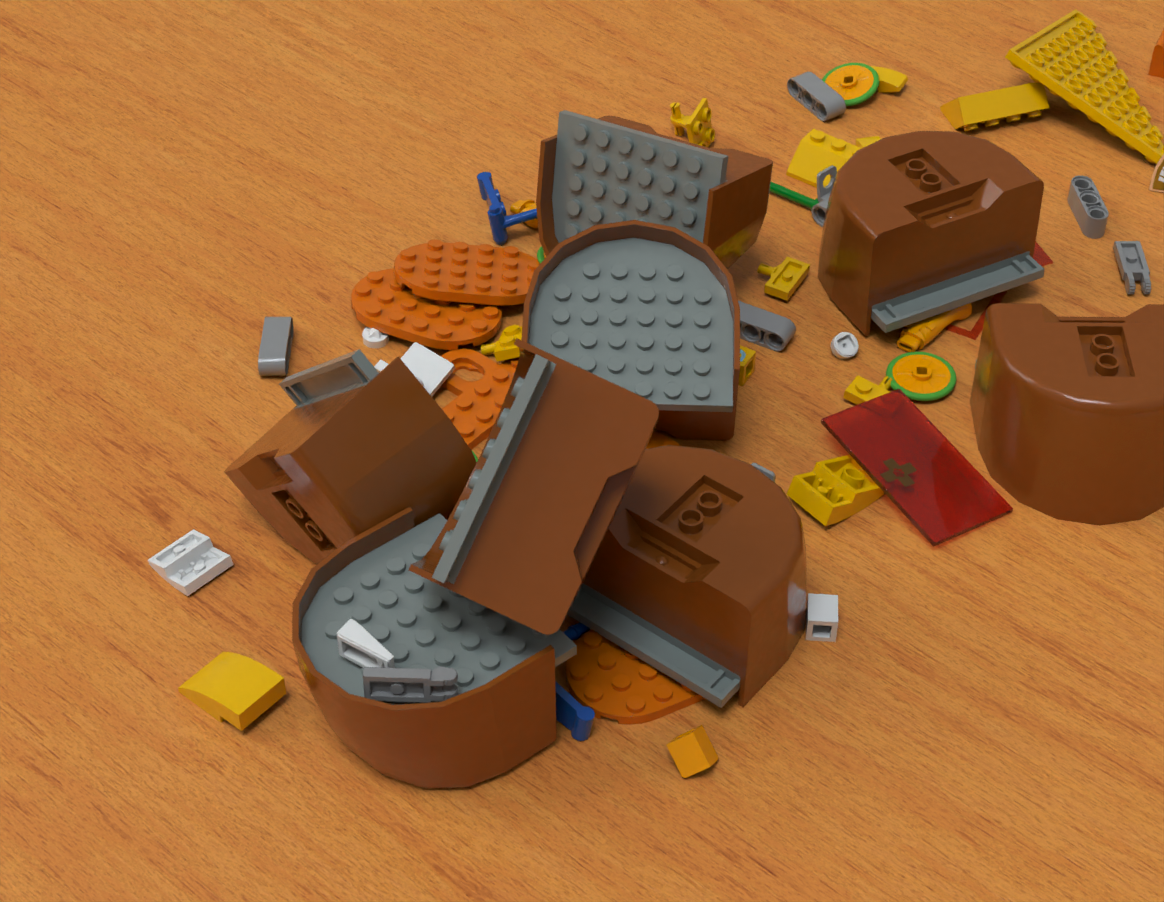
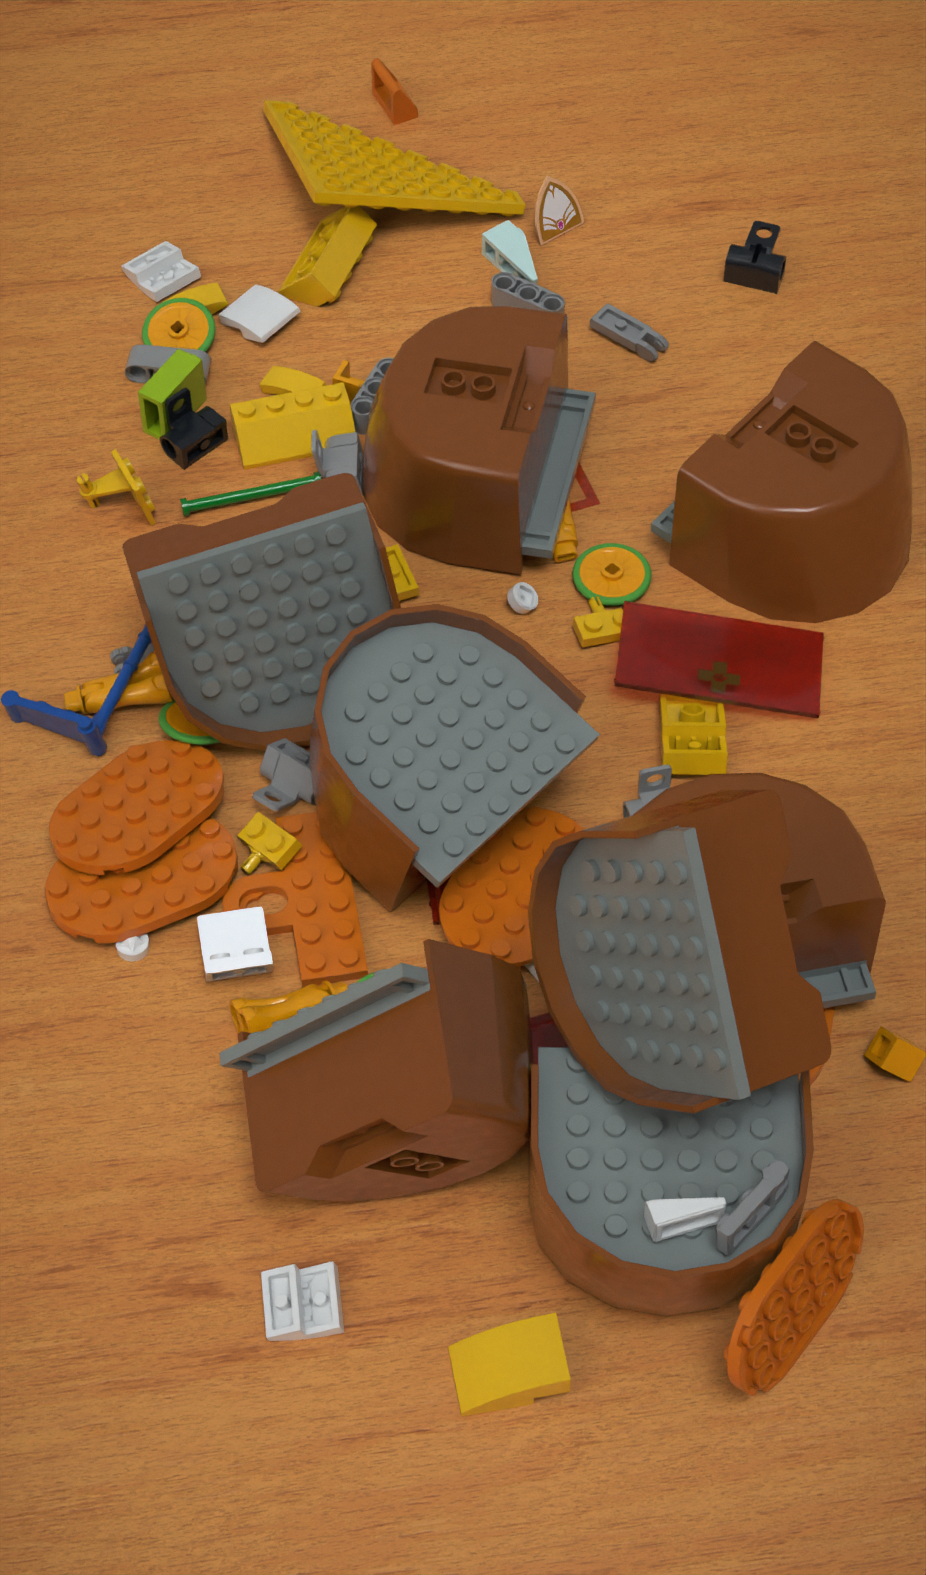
camera: 50 degrees left, 10 degrees up
(275, 346) = (66, 1037): light grey beam -> none
(406, 789) = (794, 1296): none -> orange plate
(777, 133) = (191, 432): none -> black piece
(790, 105) = (178, 372): none -> lime brick
(886, 53) = (161, 271): none -> white slope
(910, 107) = (259, 313): none -> white slope
(1117, 176) = (509, 251): none -> light aqua slope

